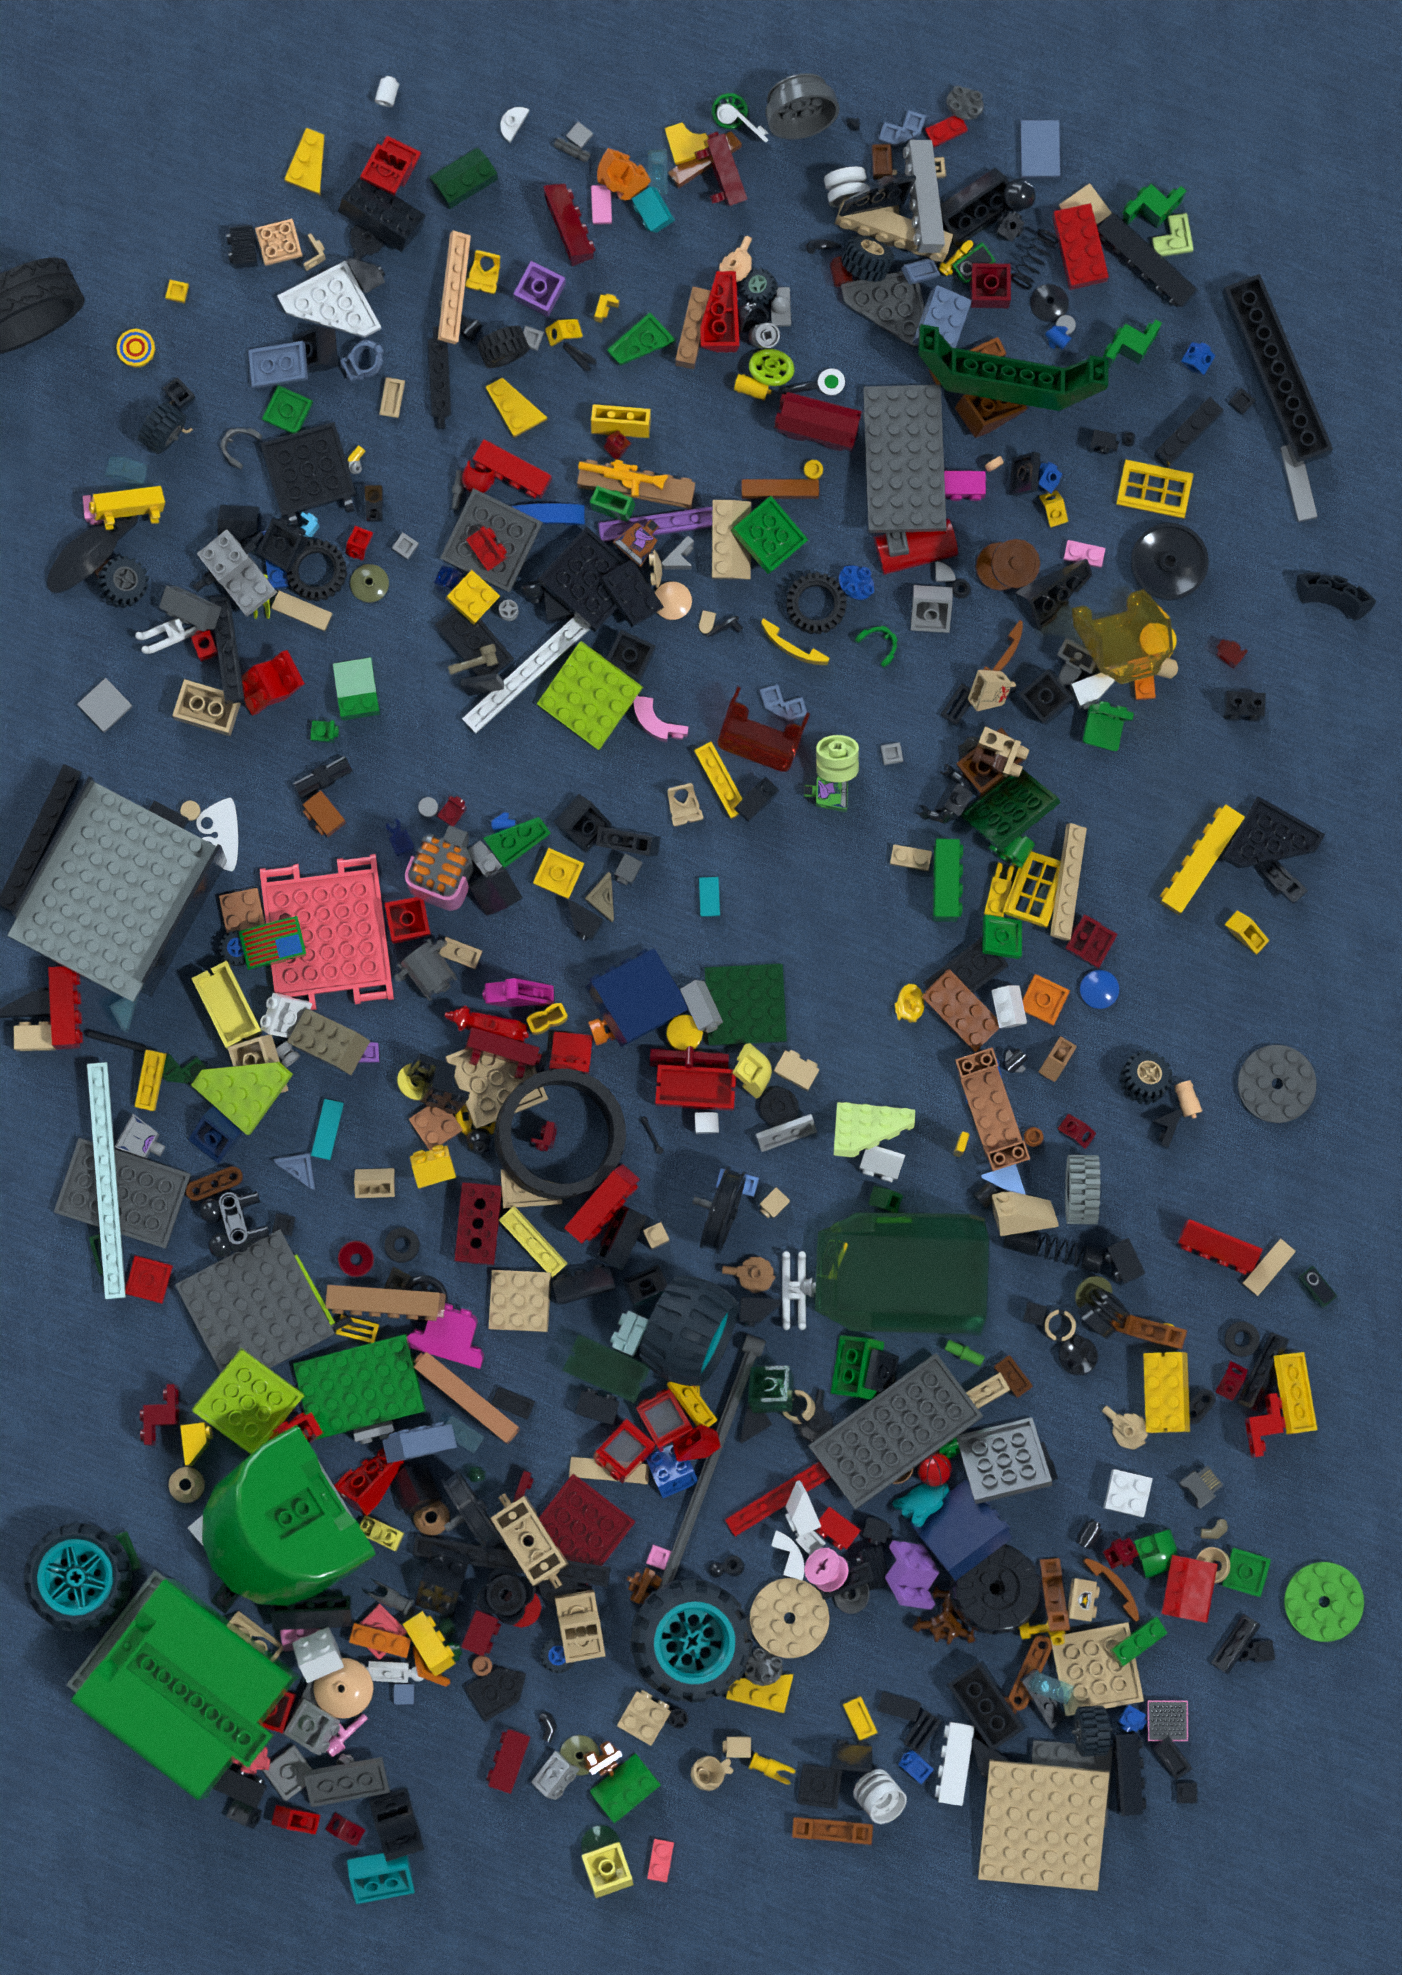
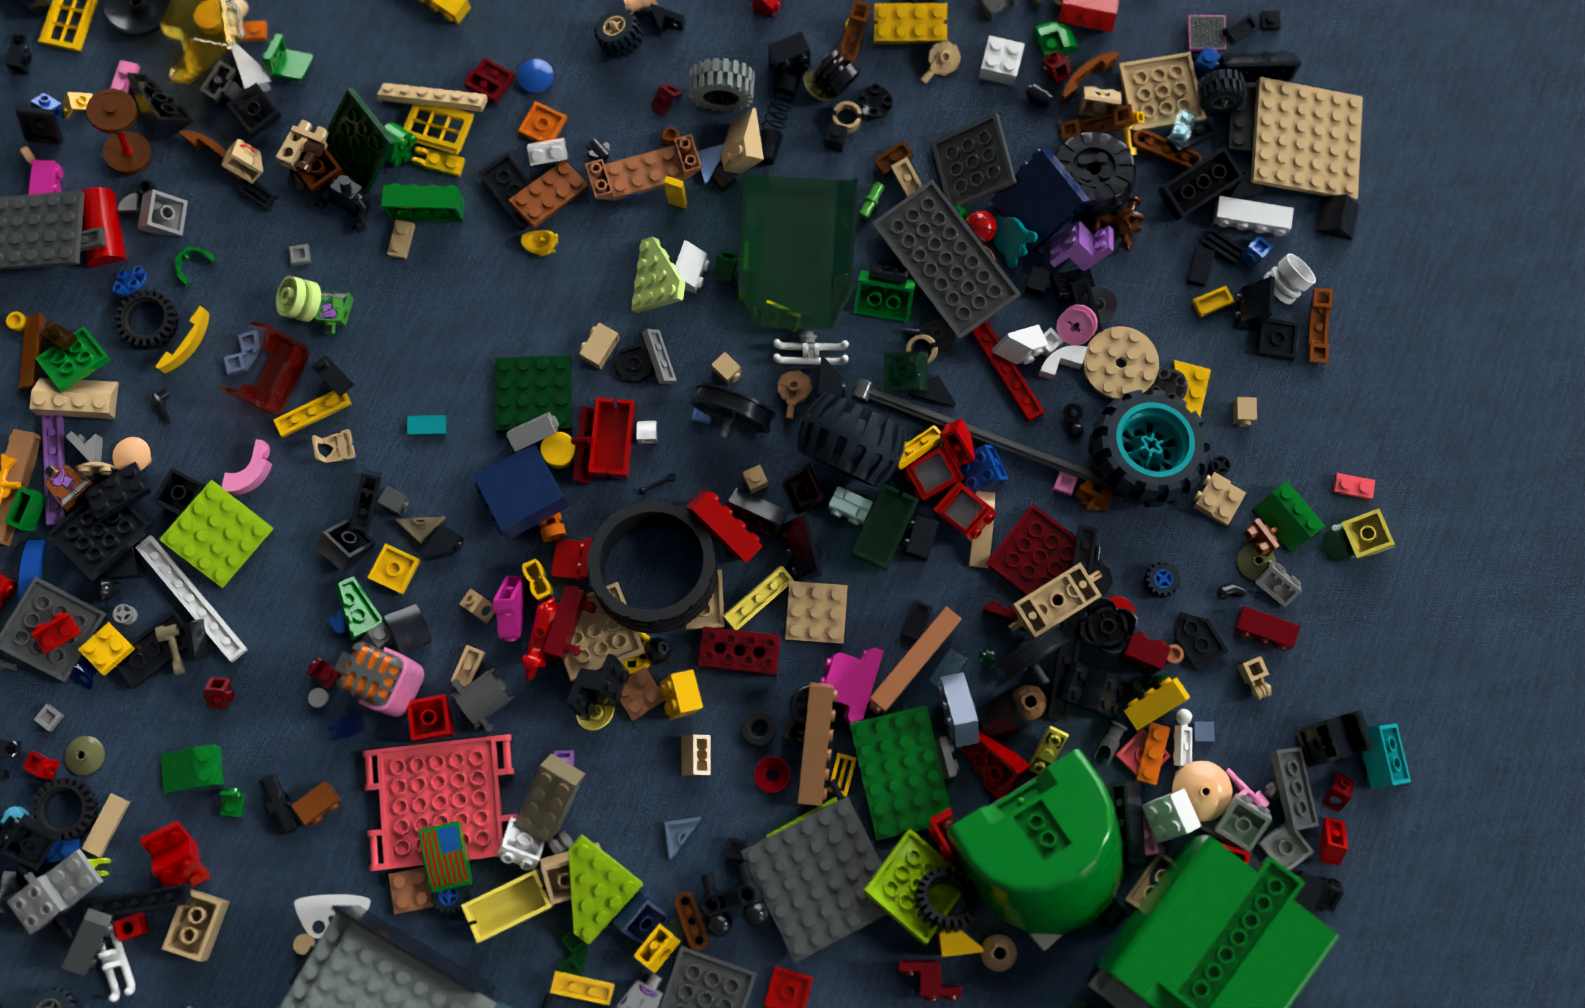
camera: 85 degrees left, 5 degrees down
(187, 1150) = (657, 948): none -> yellow brick
(212, 1425) = (934, 917): none -> black tyre
(327, 1129) = (640, 803): teal tile -> none
(424, 1672) = (1179, 711): orange tile -> none
(430, 710) = (218, 693): none -> dark red brick
(460, 1746) = (1253, 673): none -> tan brick
(523, 957) = (475, 603): none -> tan bracket
(548, 1135) = (653, 579): dark red bracket -> none
(579, 1626) = (1135, 556): tan bracket -> none
(706, 622) = (156, 423): tan piece -> none
(709, 1772) = (1271, 437): tan hat -> none
(753, 1070) = (597, 383): light yellow brick -> none
(770, 1767) = (1263, 382): yellow piece -> none
(794, 517) = (58, 336): none -> dark brown tile
(837, 1528) = (1038, 312): red brick -> none
(958, 1857) = (1337, 216): none -> black slope
(1002, 936) = (480, 156): green plate -> none
(1057, 1059) = (599, 112): medium nougat slope -> none
(1138, 1641) = (1137, 54): green plate -> none

